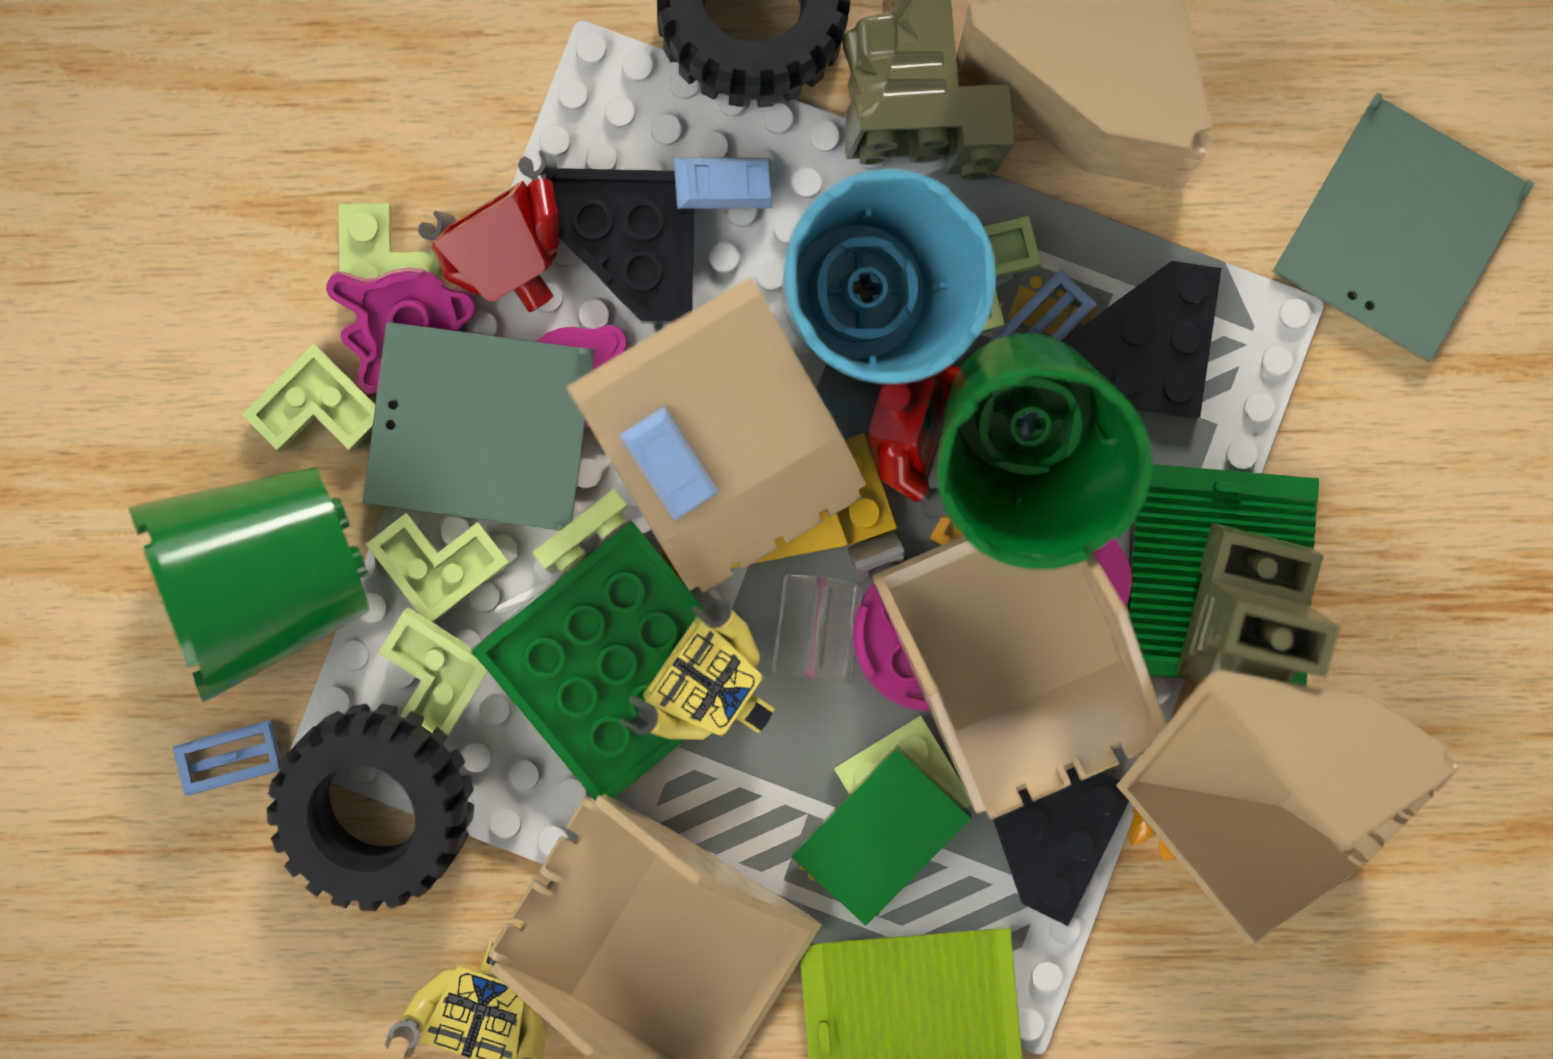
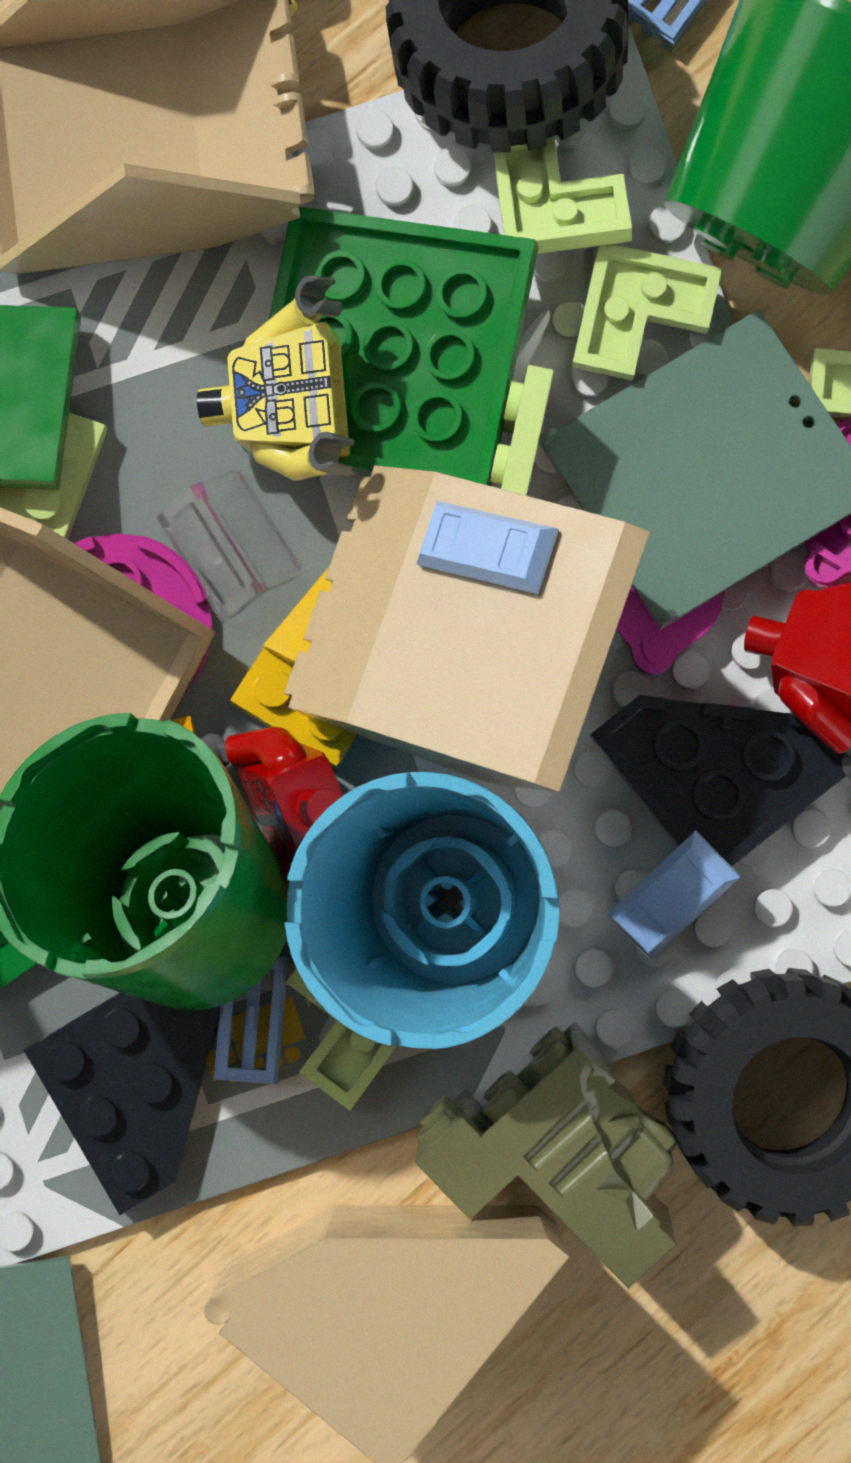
camera: 140 degrees right, 0 degrees up
(876, 555) = (229, 658): light grey slope -> none

